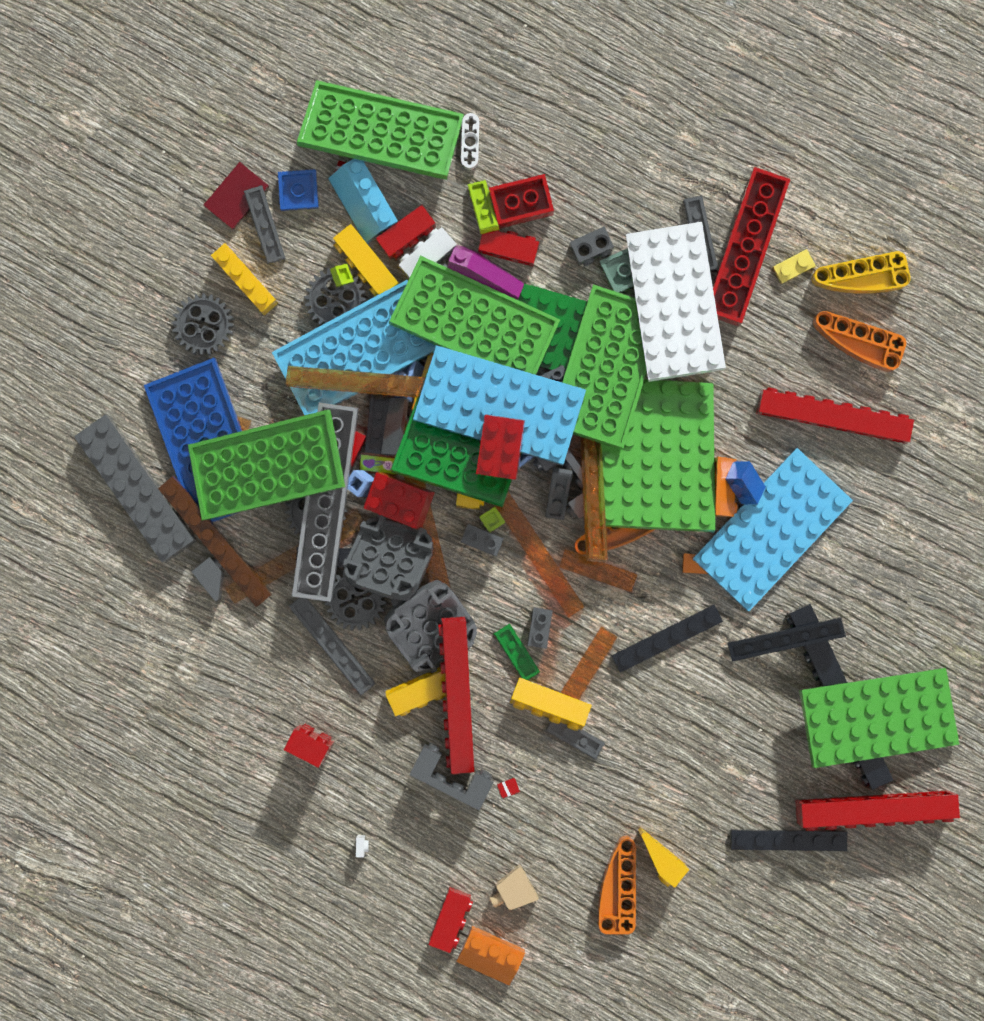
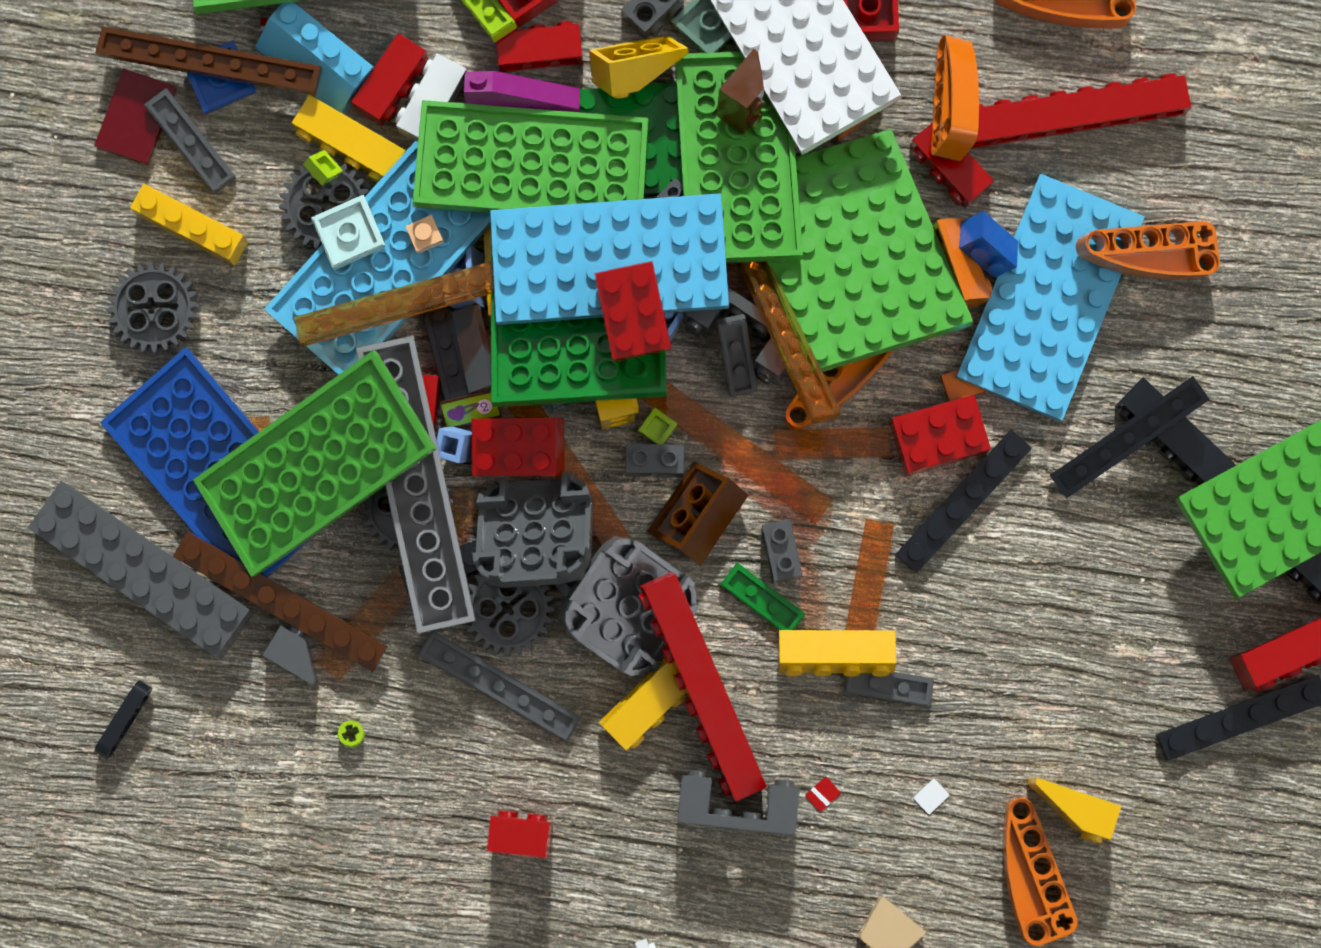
camera: 20 degrees left, 5 degrees down
(91, 578) = (123, 719): none -> black beam
(225, 635) = (359, 736): none -> lime bush
(295, 178) = (208, 61): none -> reddish brown plate
(342, 323) = (348, 232): none -> light aqua tile
(389, 343) = (424, 234): none -> light nougat plate
(496, 583) = (698, 513): none -> reddish brown slope
(564, 281) = (633, 64): none -> yellow slope
(575, 815) = (931, 796): none -> white sticker
(623, 331) = (742, 95): none -> reddish brown slope
(667, 592) = (939, 435): none -> red brick
(741, 420) = (962, 178): none -> red brick
(760, 381) = (955, 99): none -> orange beam
(852, 531) = (1162, 257): none -> orange beam

